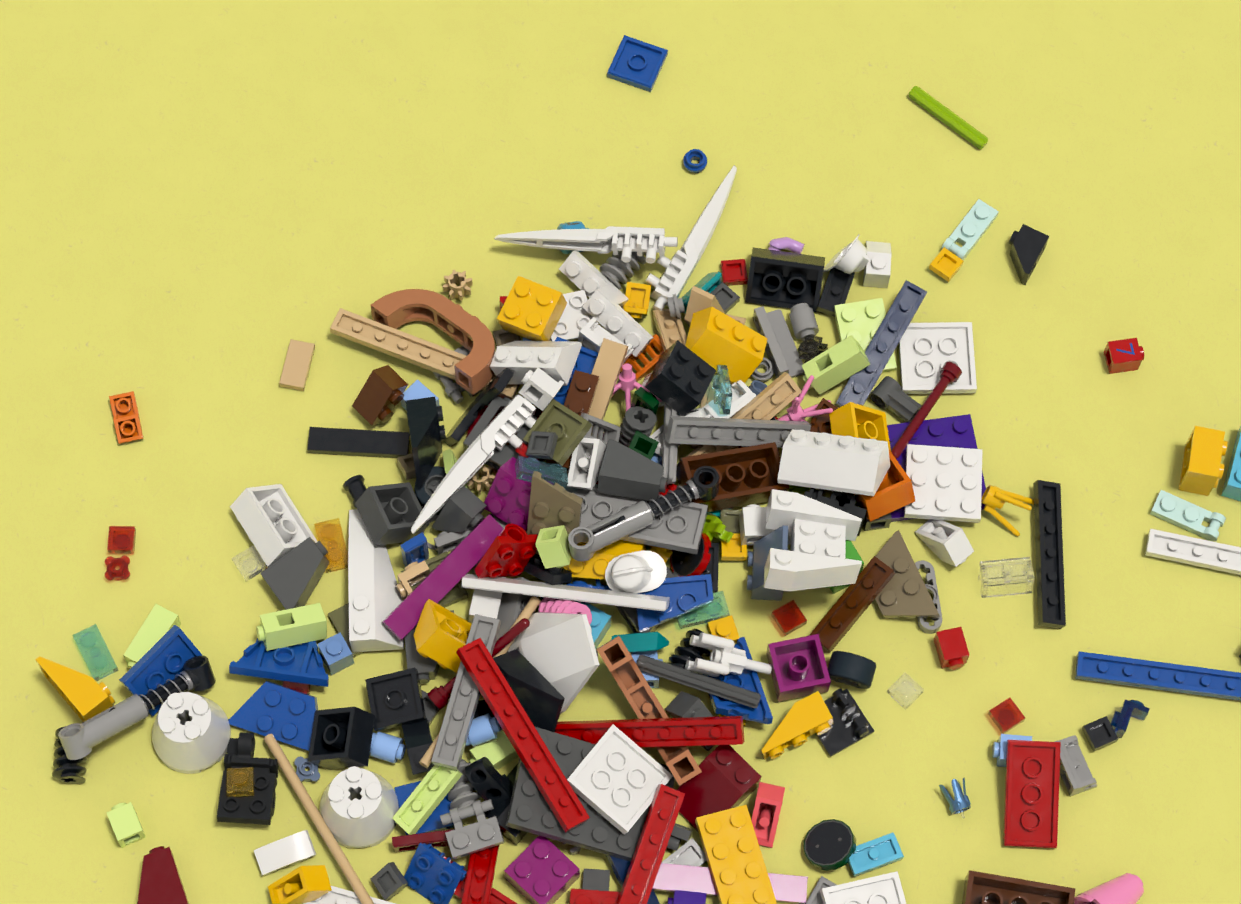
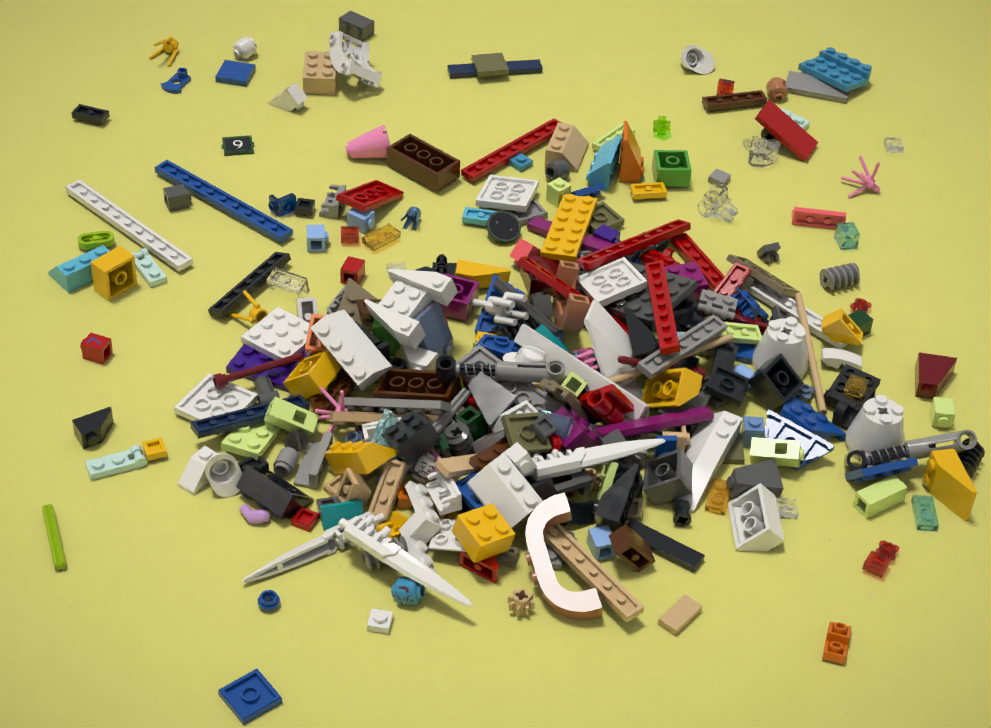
camera: 150 degrees left, 25 degrees down
(578, 199) = (380, 621): none -> white plate
(675, 306) = (371, 502): light grey plate -> none
(966, 735) = (381, 237): none -> clear yellow plate
(1039, 680) = (316, 238): none -> light blue brick

